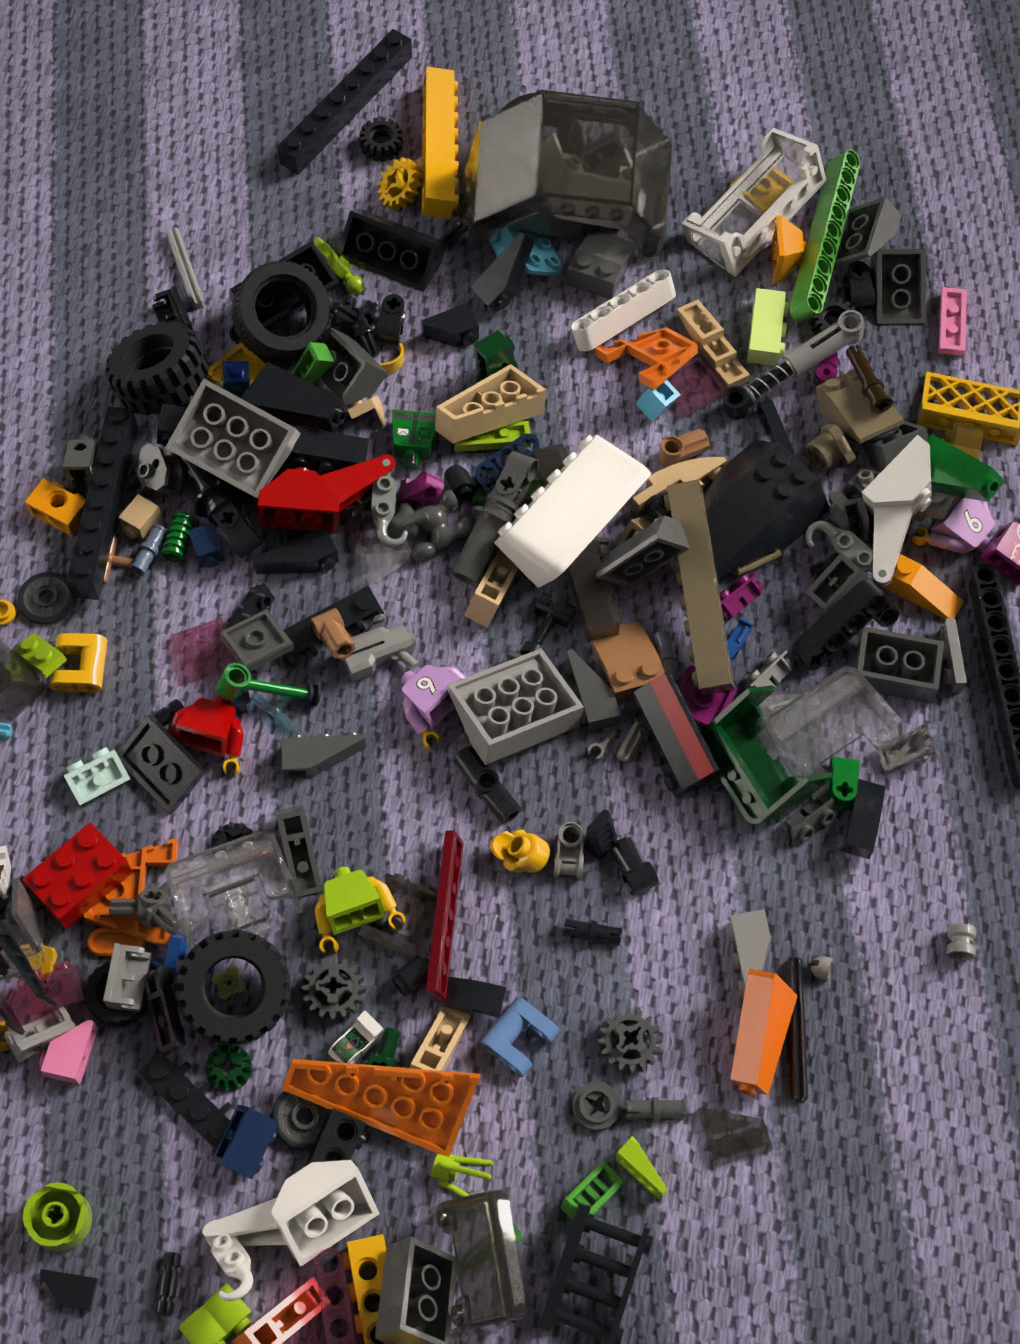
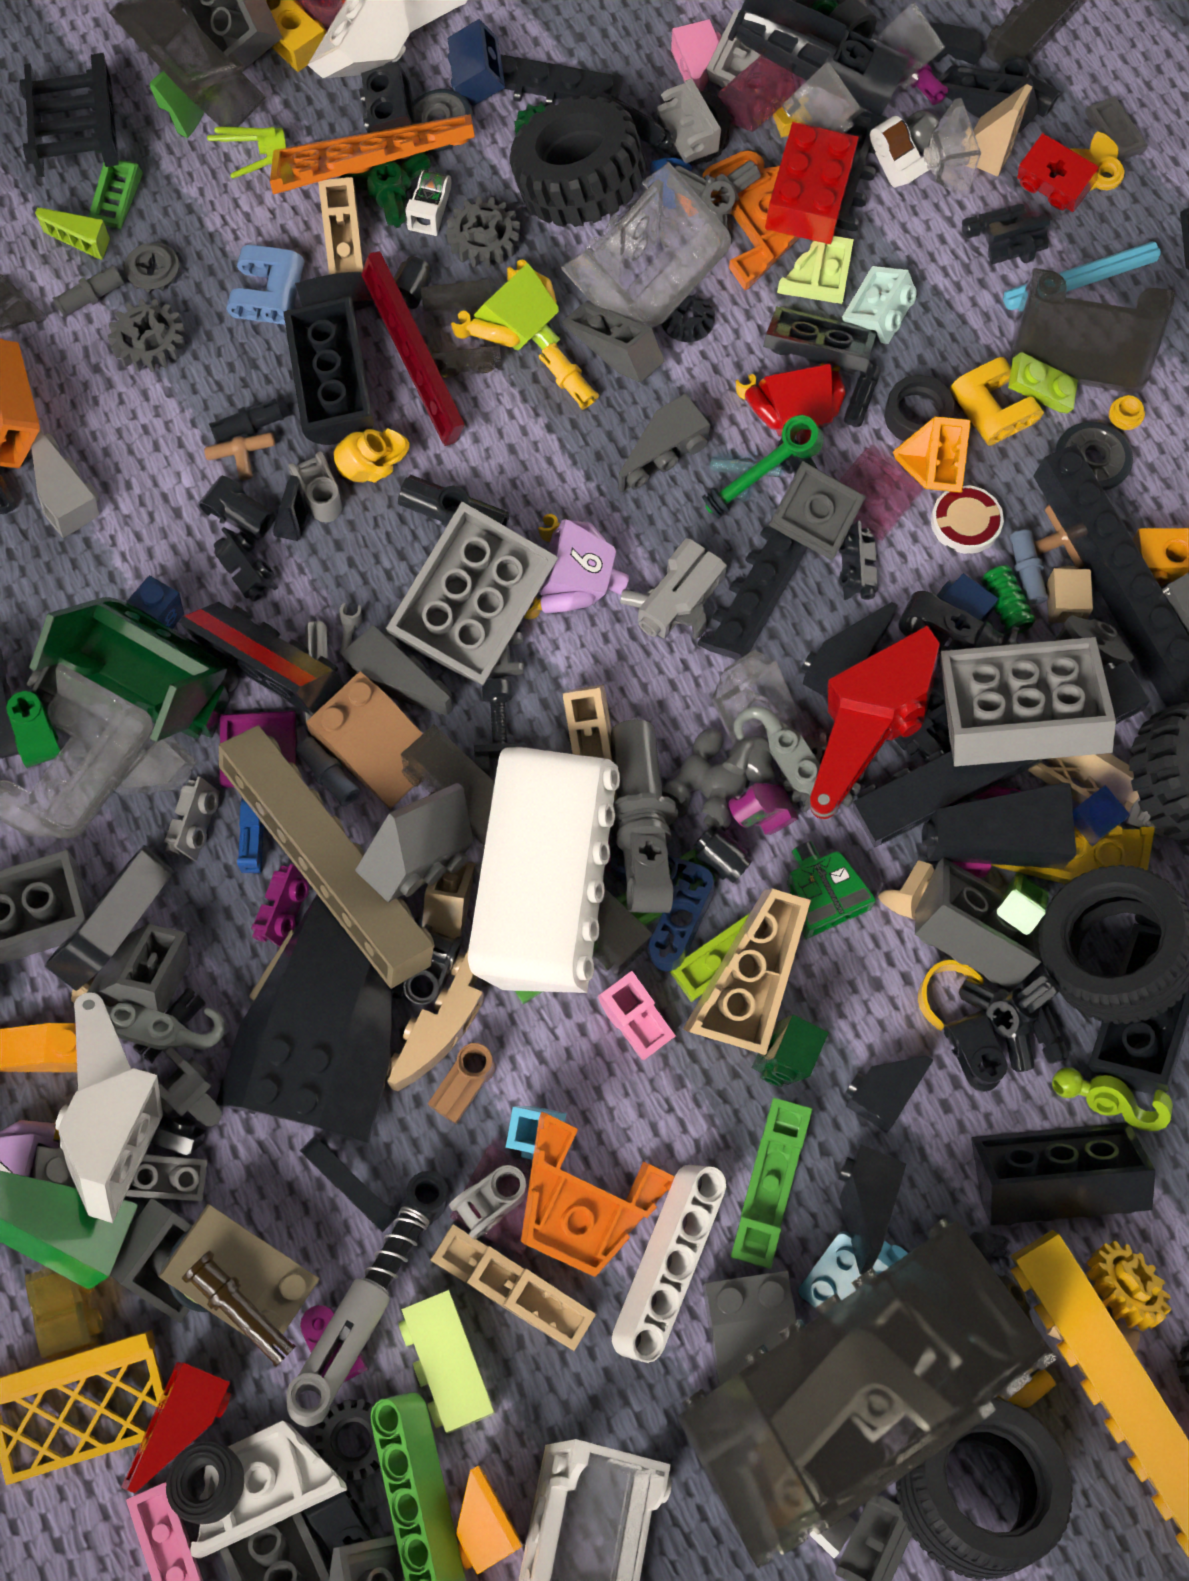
camera: 150 degrees right, 5 degrees up
(121, 820) = (820, 272): none -> yellowish green wing
(134, 704) = (921, 386): none -> black tyre
(150, 641) = (937, 454): none -> light orange slope
(159, 602) = (967, 519): none -> tile
(332, 631) = (743, 565): medium nougat piece -> none
(347, 840) = (568, 376): none -> yellow pin
(513, 930) = (328, 370): none -> black brick
(549, 320) = (770, 1183): none -> bright green slope
(566, 427) = (635, 1015): none -> bright pink brick
(607, 915) = (240, 447): none -> medium nougat piece
(646, 812) = (237, 552): none -> black hinge
(701, 378) = (488, 1201): none -> light grey piece
(725, 818) = (158, 601): none -> dark blue brick
(829, 448) = (255, 1193): dark tan piece -> none
(891, 320) = (279, 1481): none -> white wing
(923, 366) = (182, 1414): none -> red slope
(933, 327) = (180, 1482): none -> black tyre

